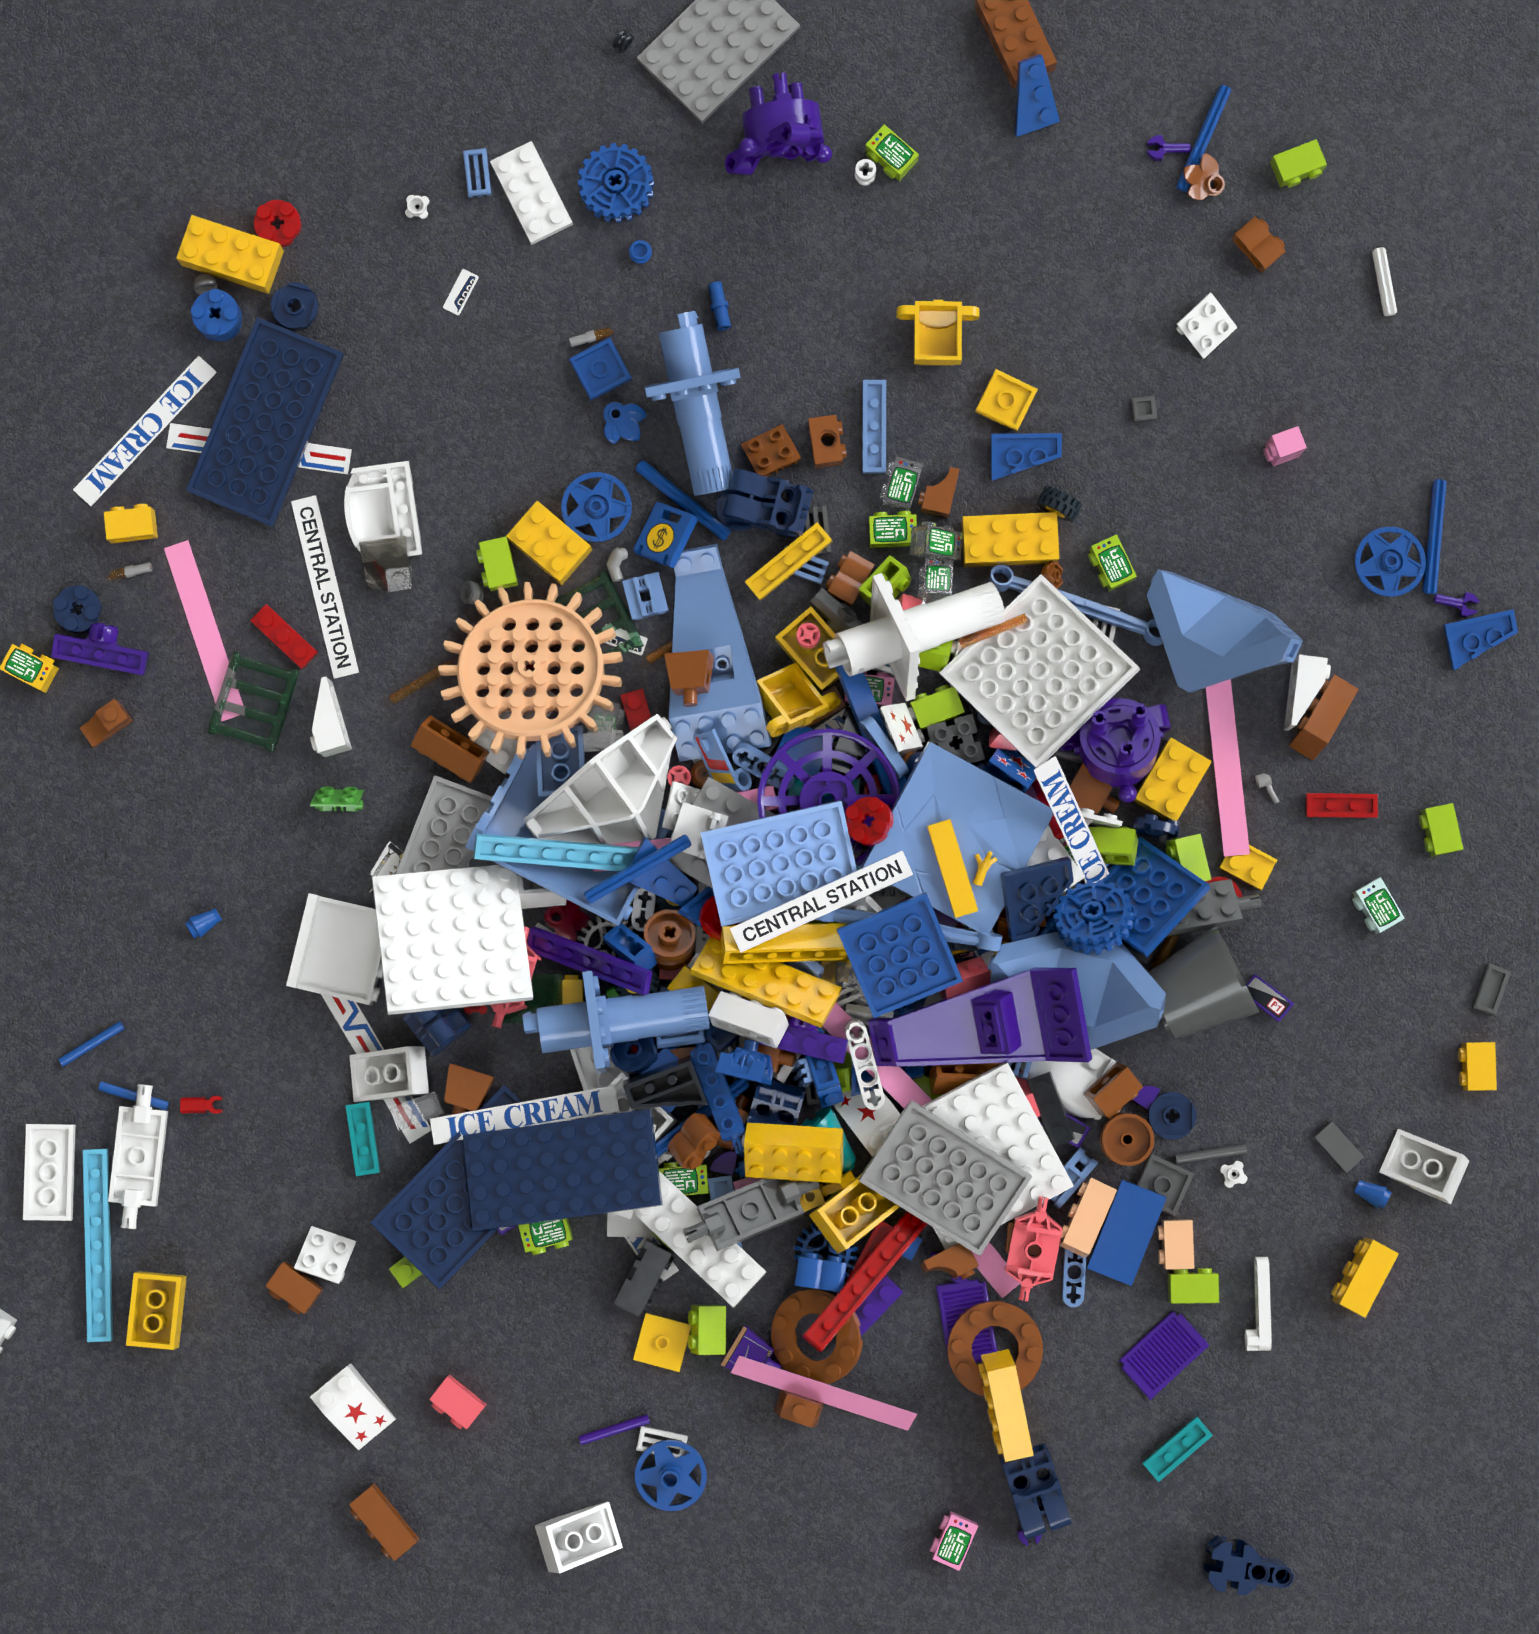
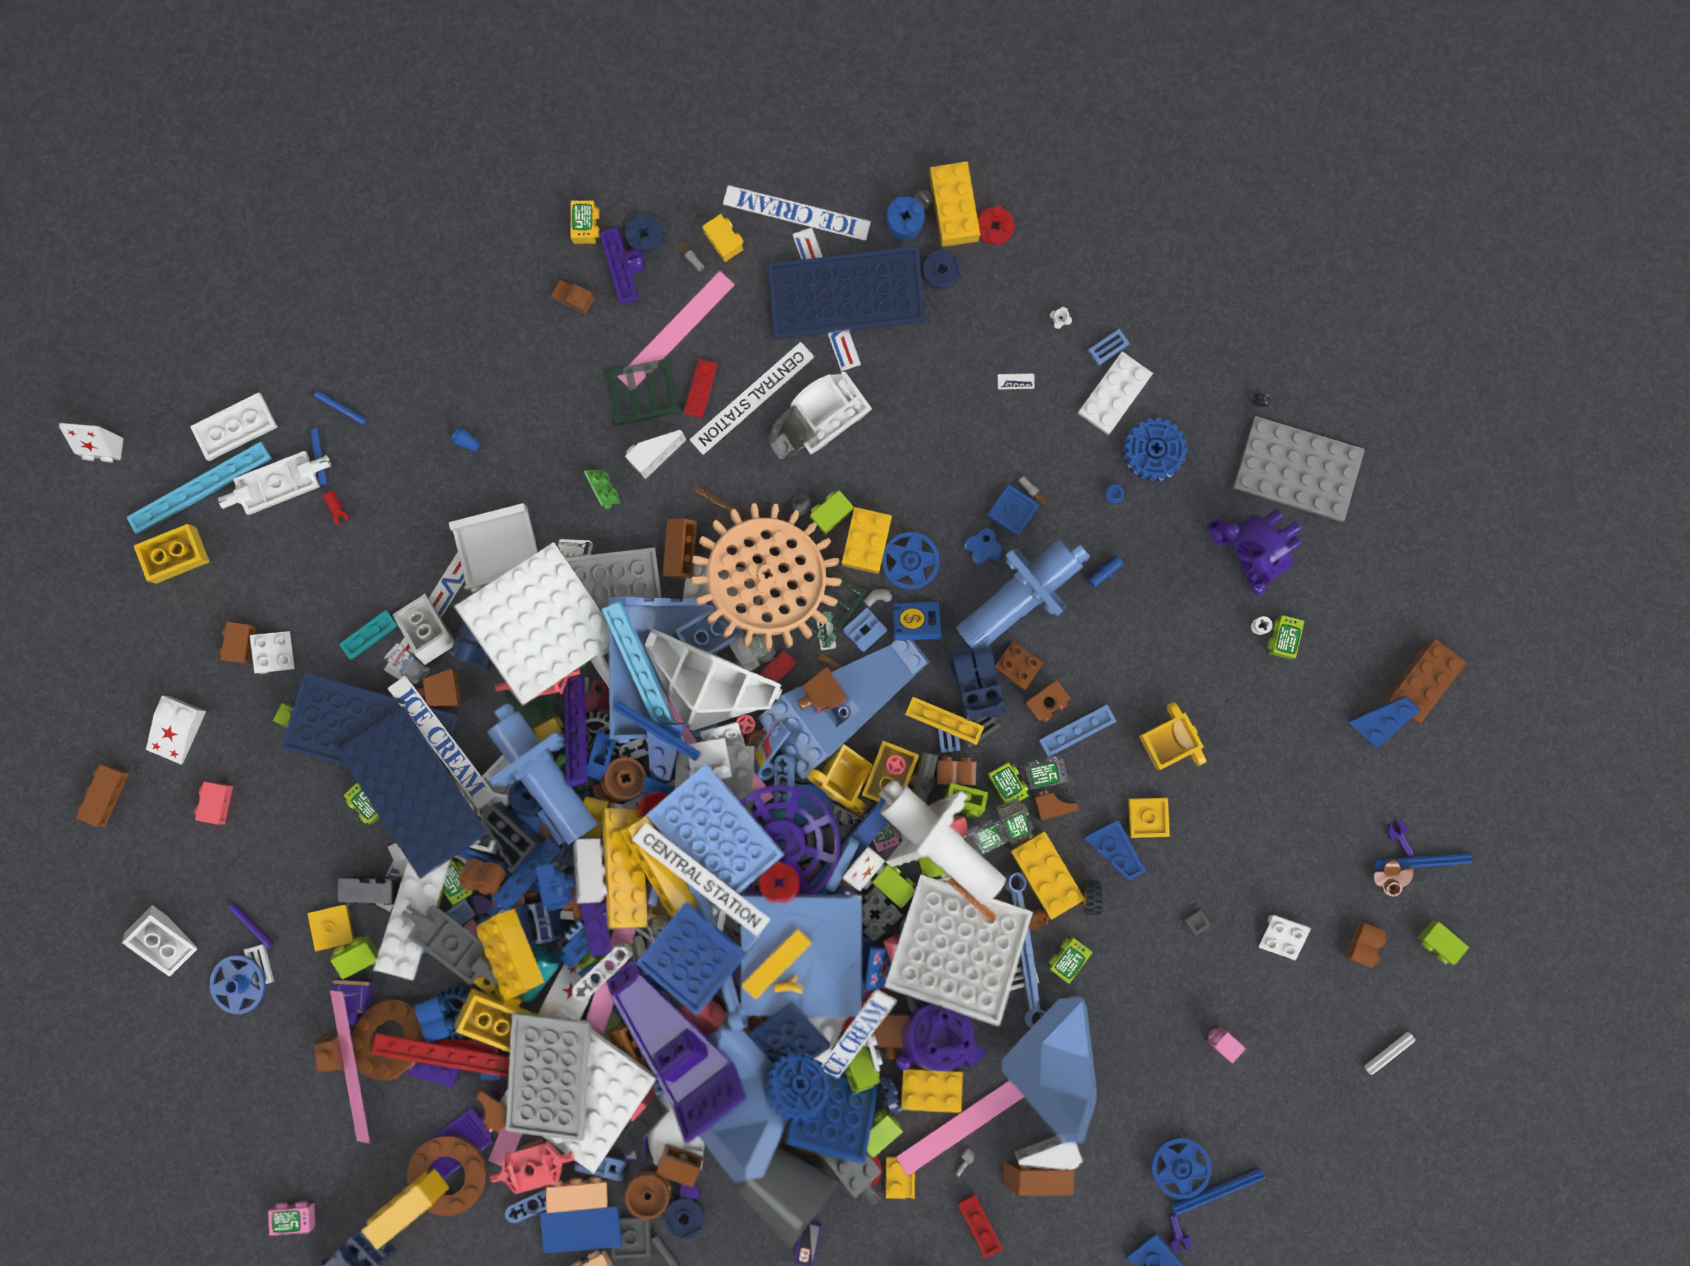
camera: 60 degrees right, 0 degrees up
(683, 500) = (949, 620): blue axle -> none

